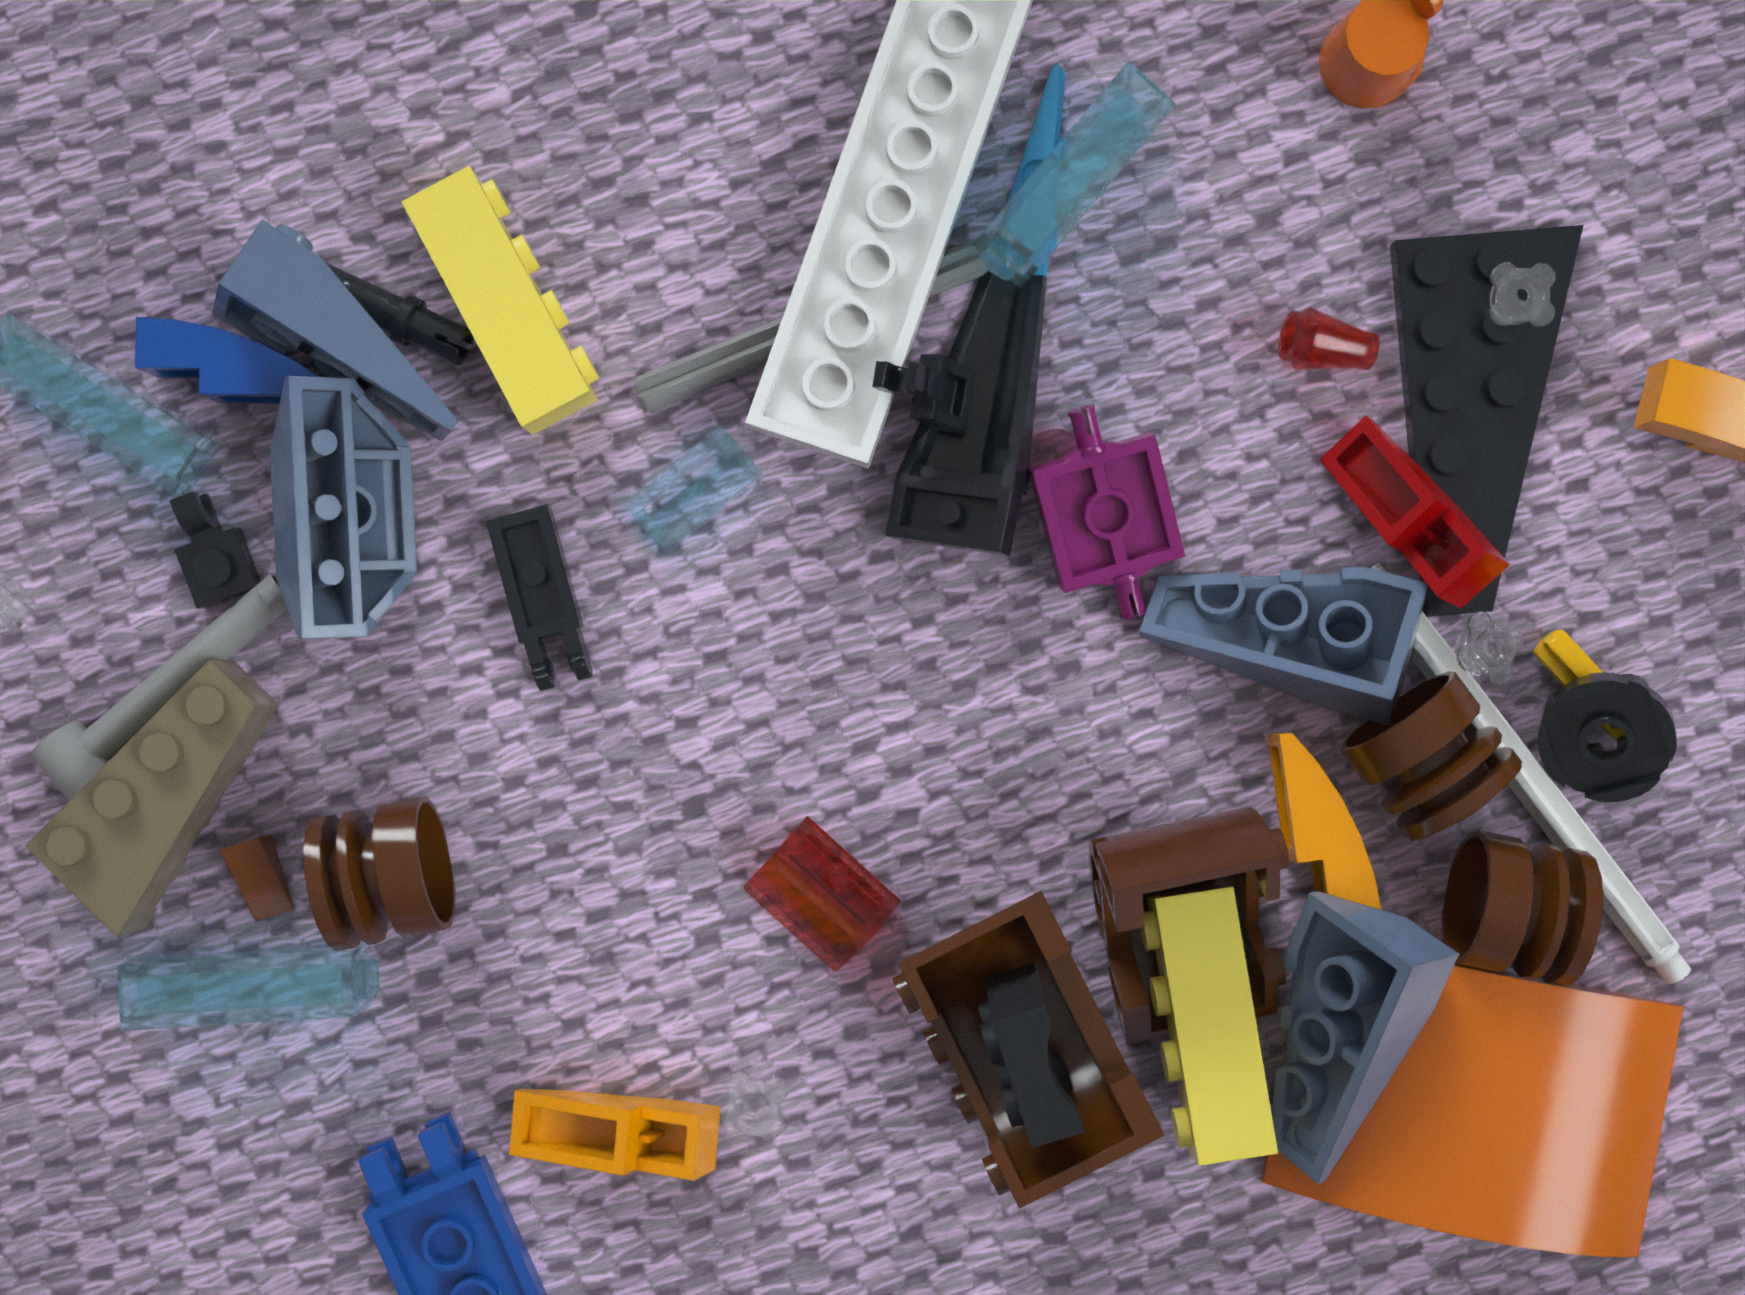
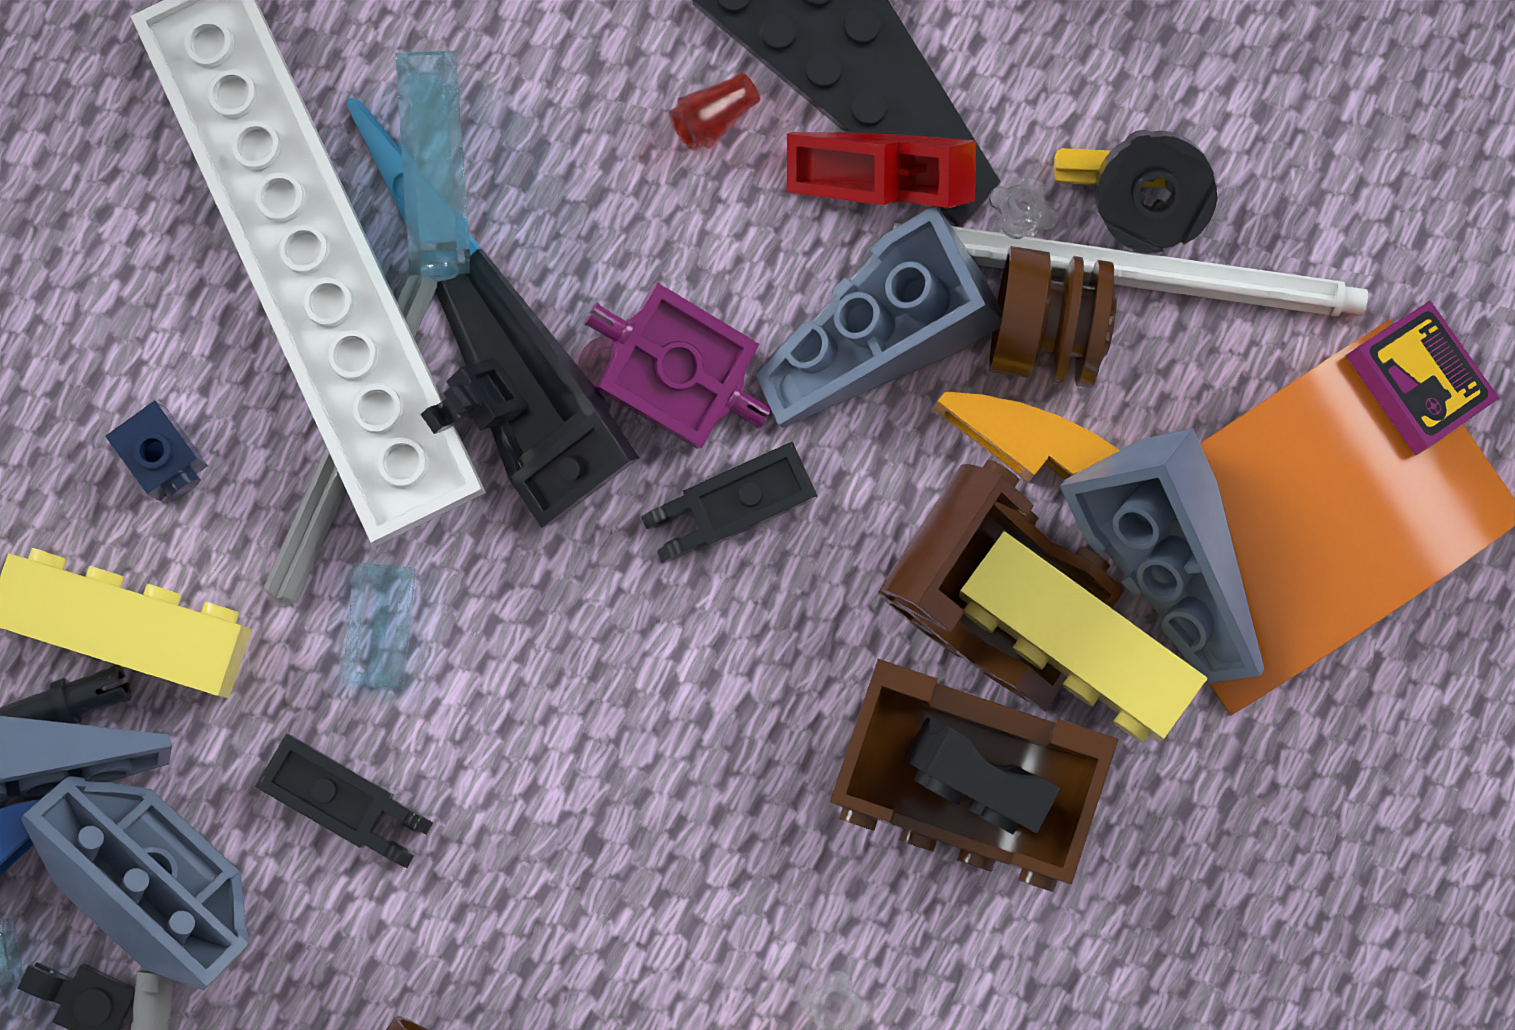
camera: 50 degrees left, 5 degrees down
(654, 197) = (158, 453): none -> dark blue brick
(822, 894) = (738, 816): clear red panel -> none
(1051, 658) = (736, 500): none -> black hinge
(1522, 907) = (1216, 354): reddish brown wheel -> none
(1667, 1079) = (1422, 377): none -> tile

